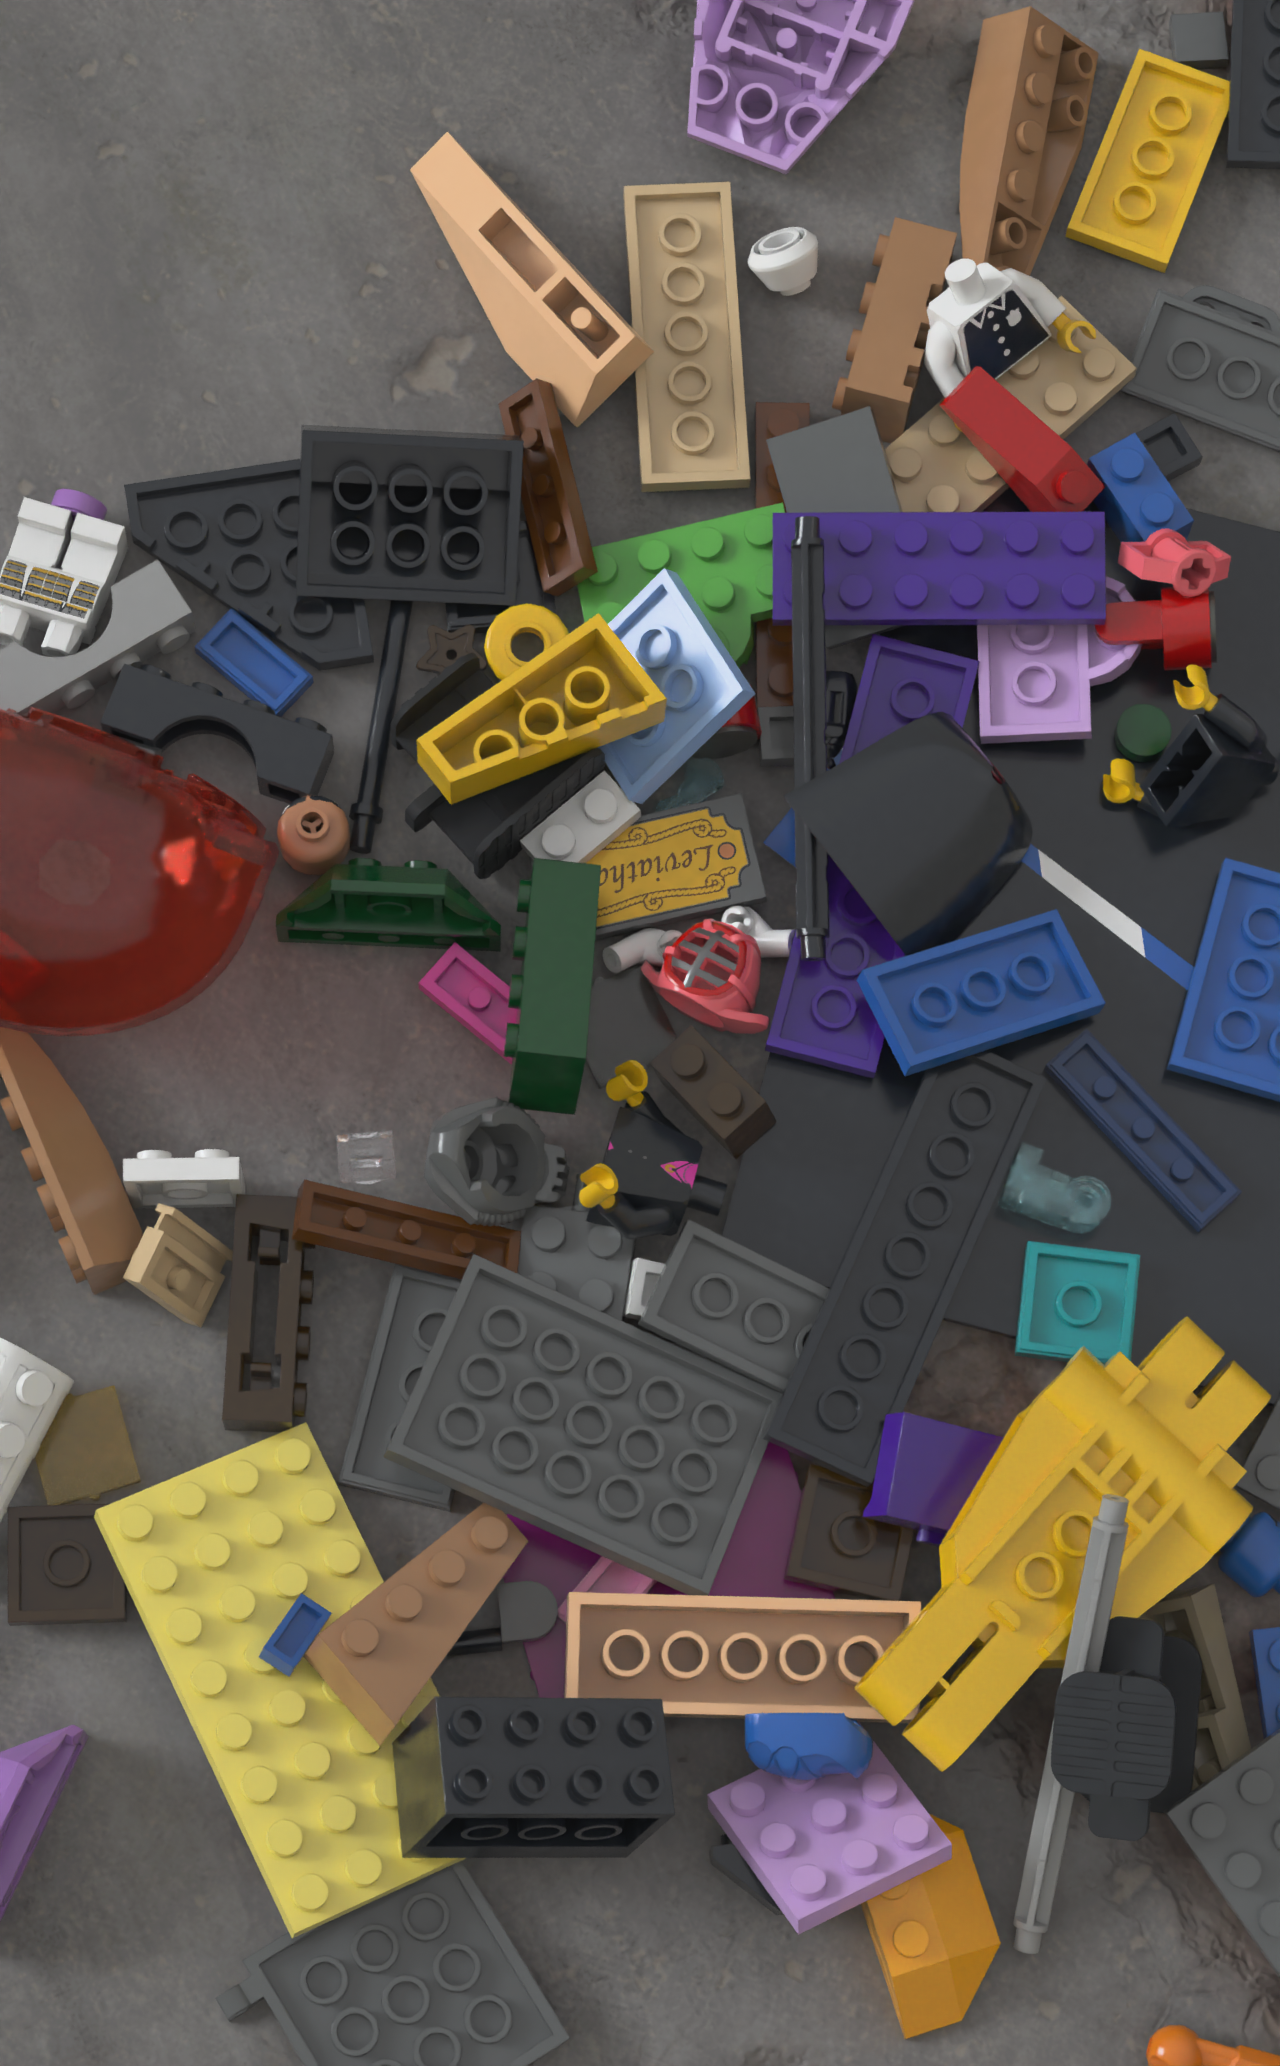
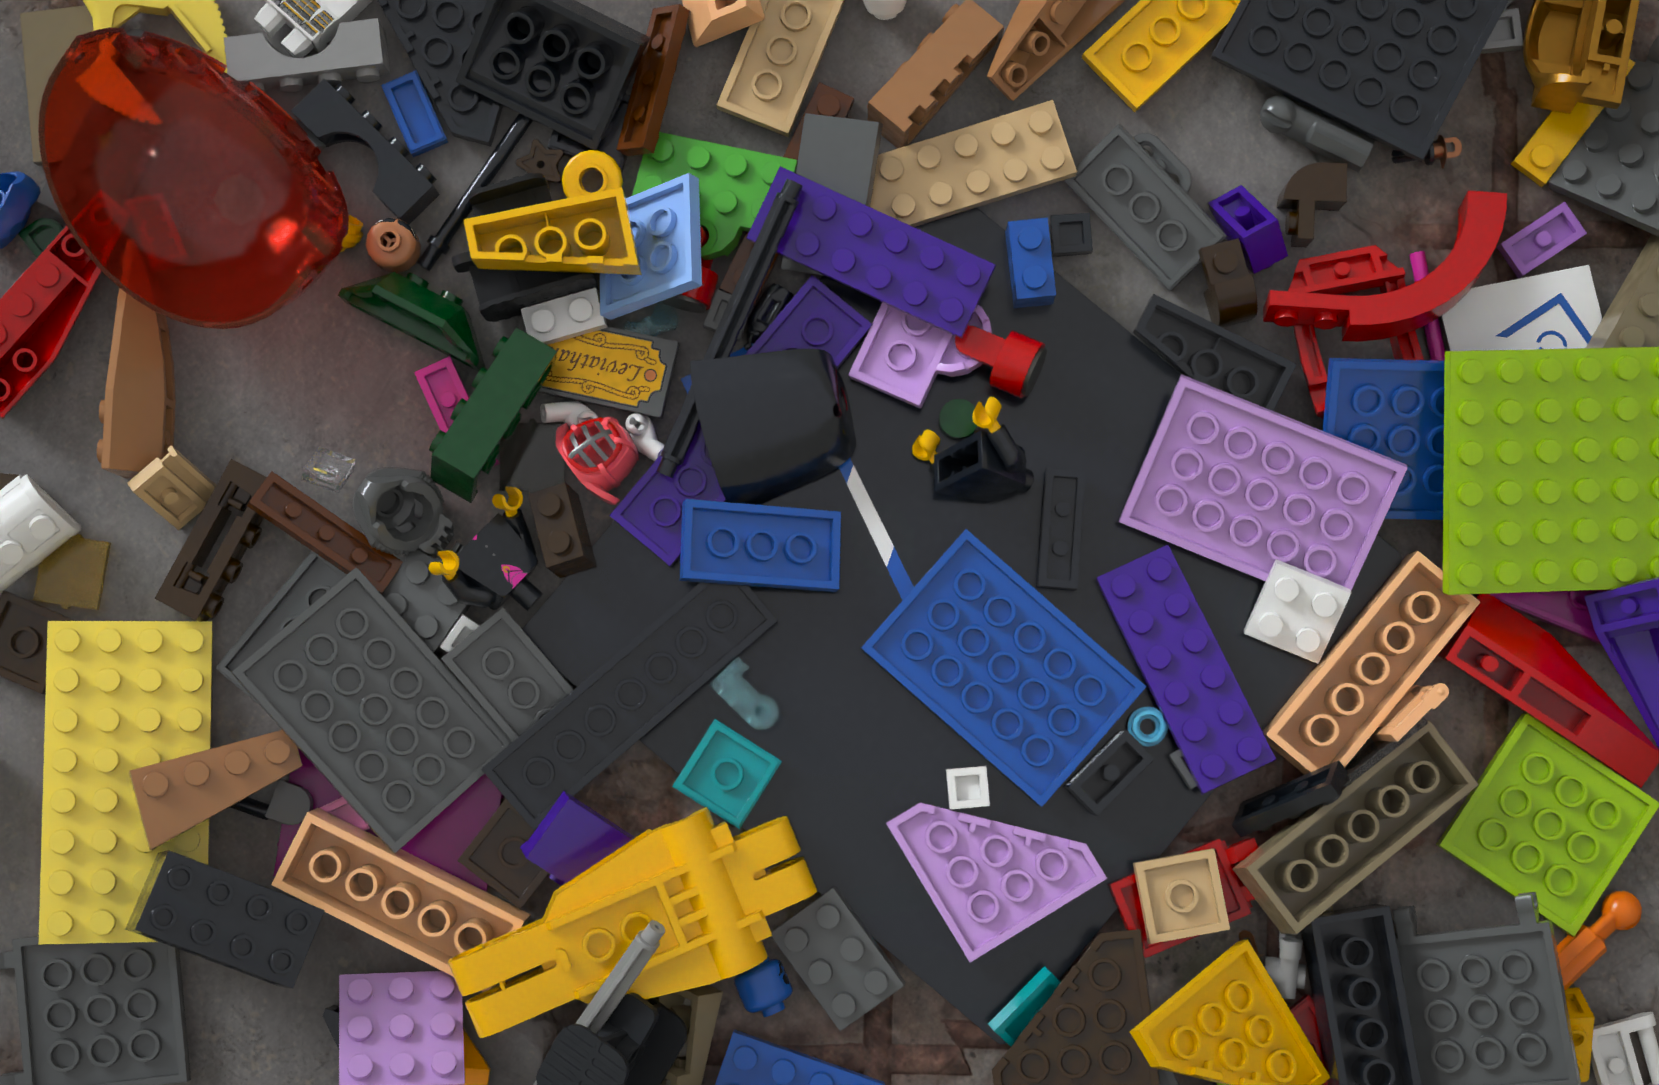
camera: 35 degrees right, 10 degrees up
(201, 1181) = (193, 429): white plate -> none
(294, 1635) = (131, 756): blue piece -> none
(807, 1744) = (409, 978): blue piece -> none
(991, 322) = (983, 102): torso -> none
(1021, 446) = (967, 193): red slope -> none
(1142, 1130) = (825, 680): dark blue tile -> none
(1174, 560) = (1028, 314): coral piece -> none

